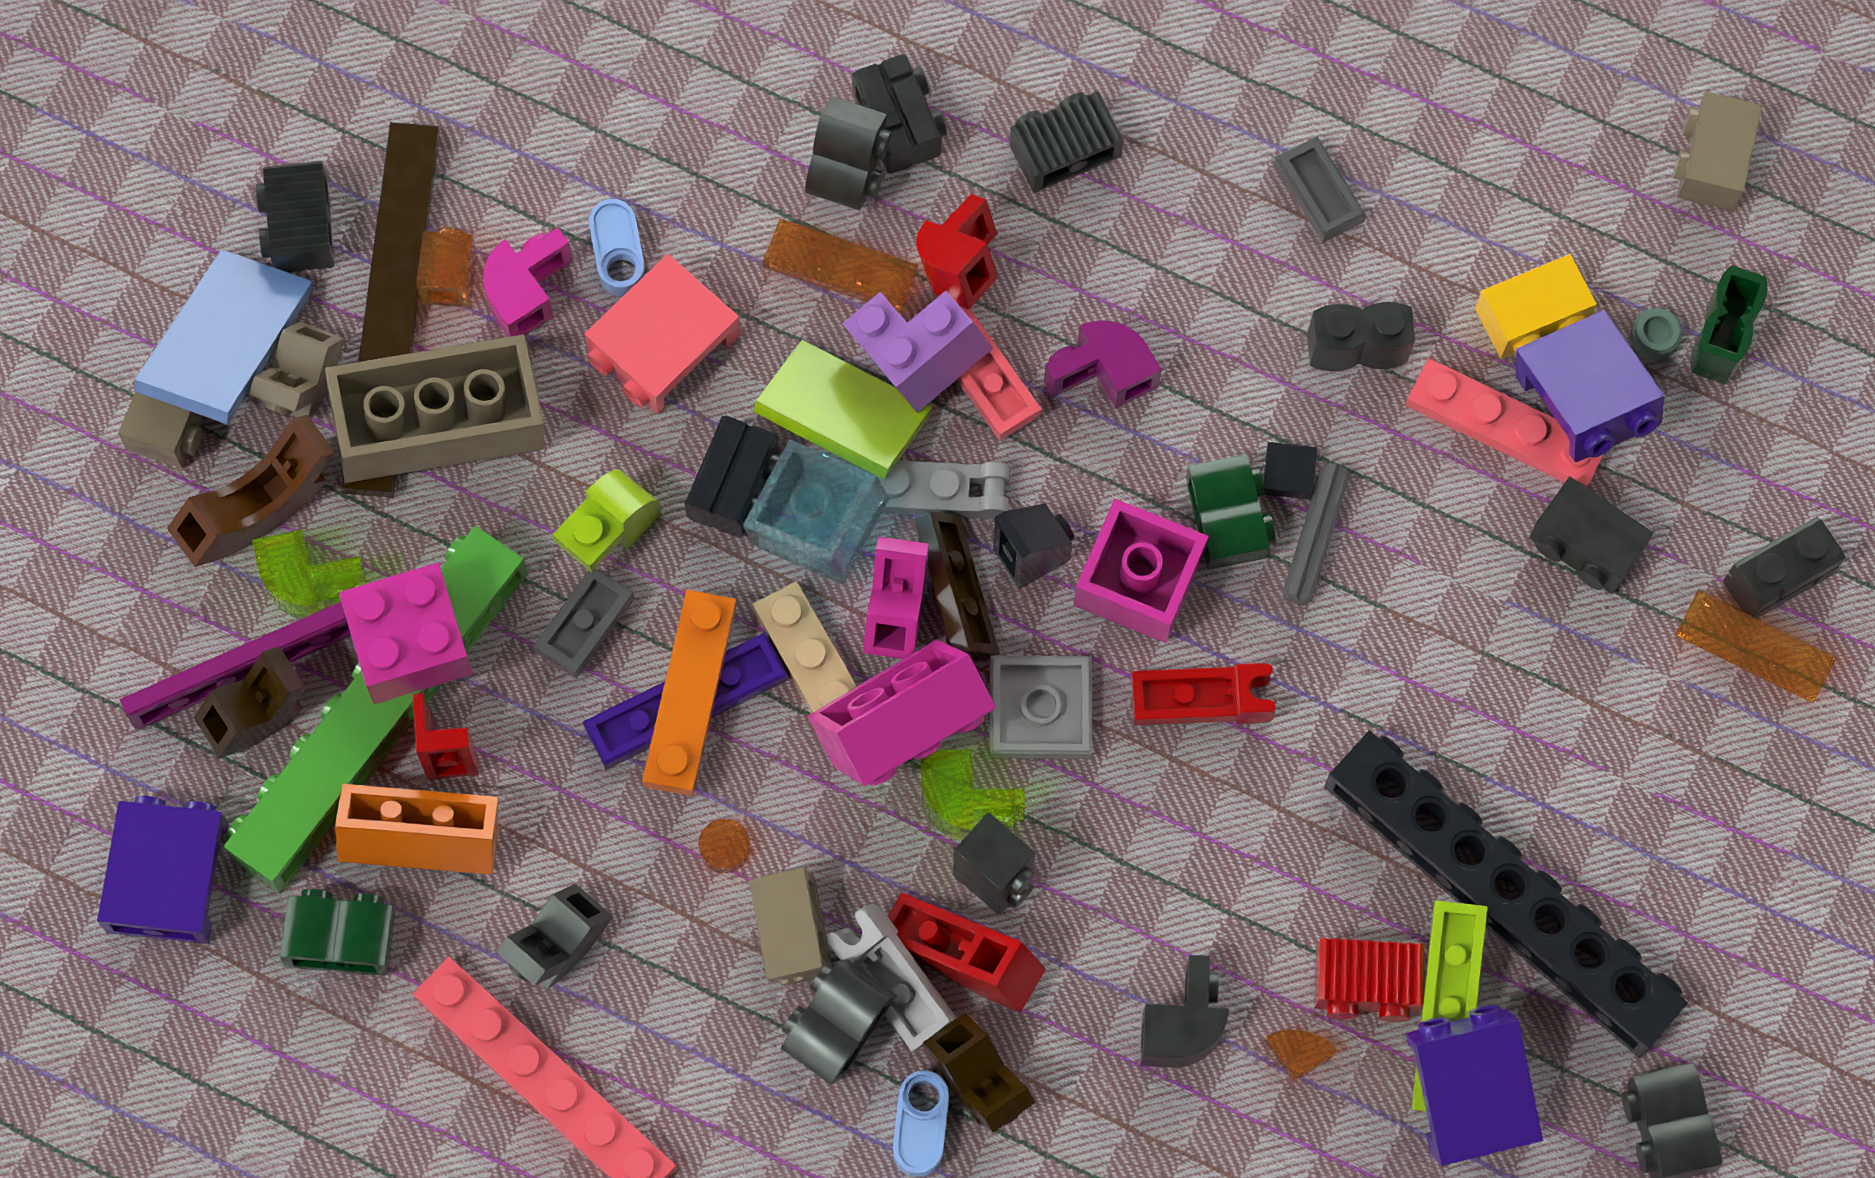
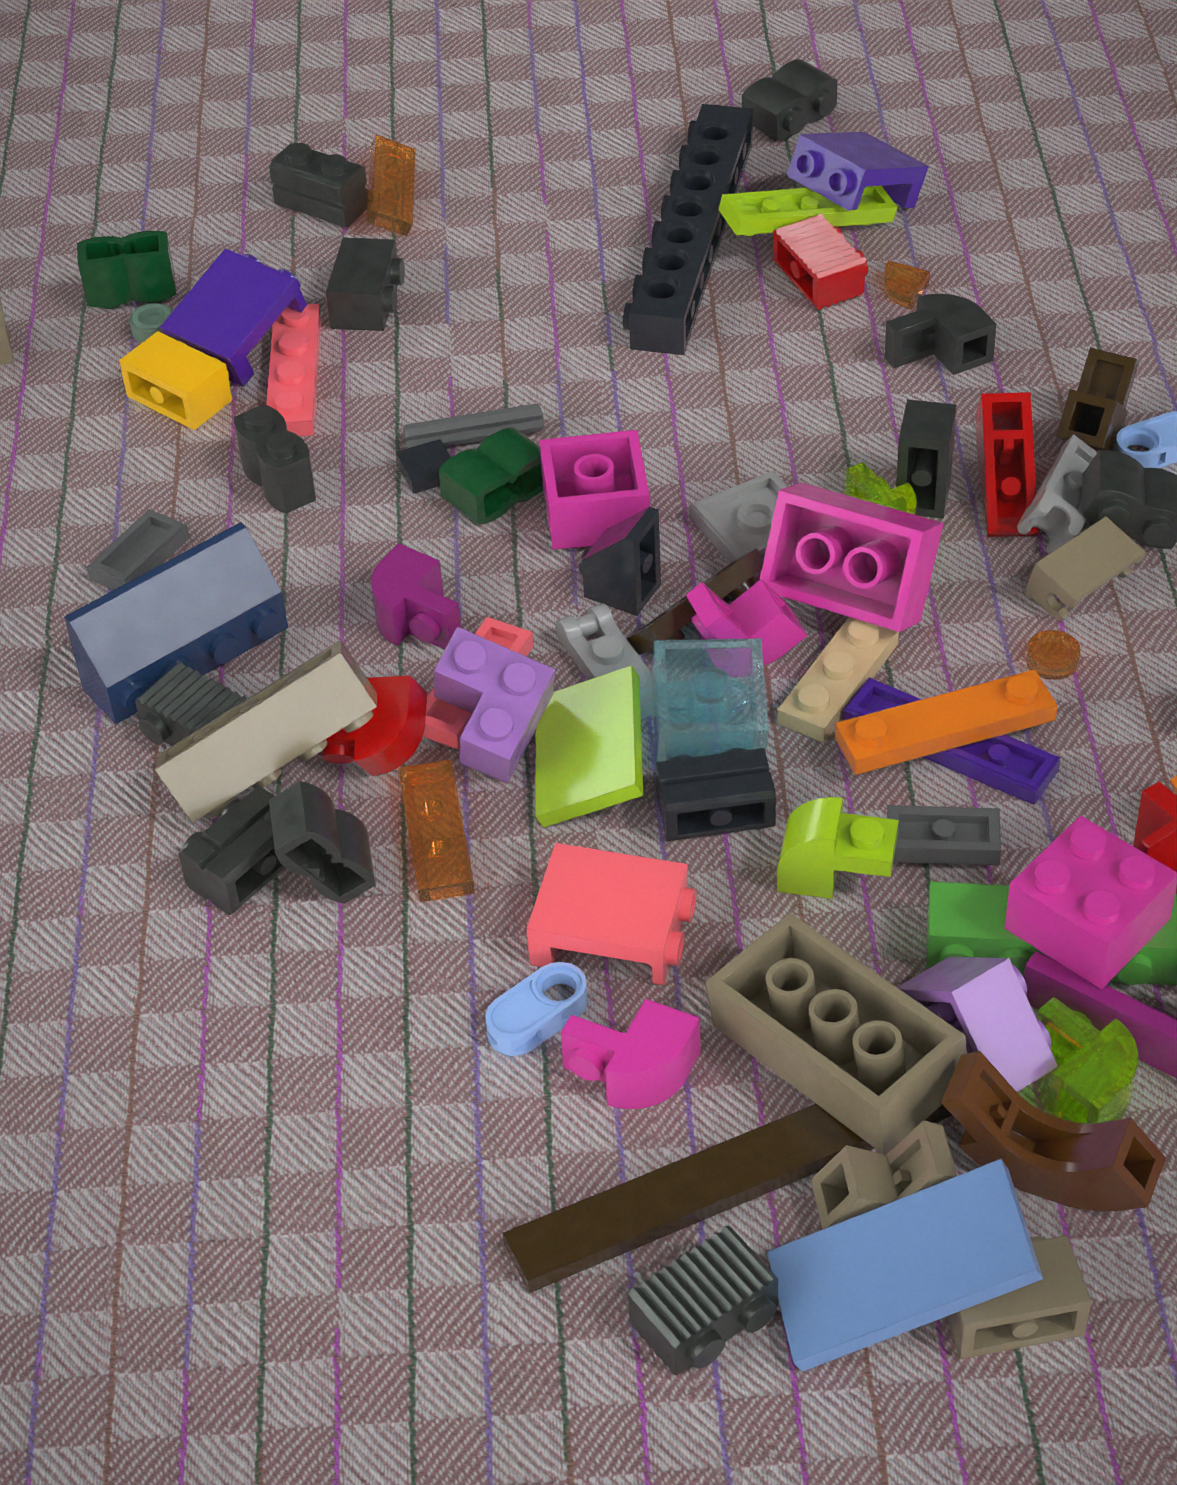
camera: 115 degrees left, 25 degrees down
(384, 509) = (991, 1009): none -> brick
(447, 268) = (664, 1124): clear orange brick -> none
(974, 154) = (267, 732): none -> brick
(1168, 161) = (187, 610): none -> slope
(1201, 695) = (669, 429): red plate -> none

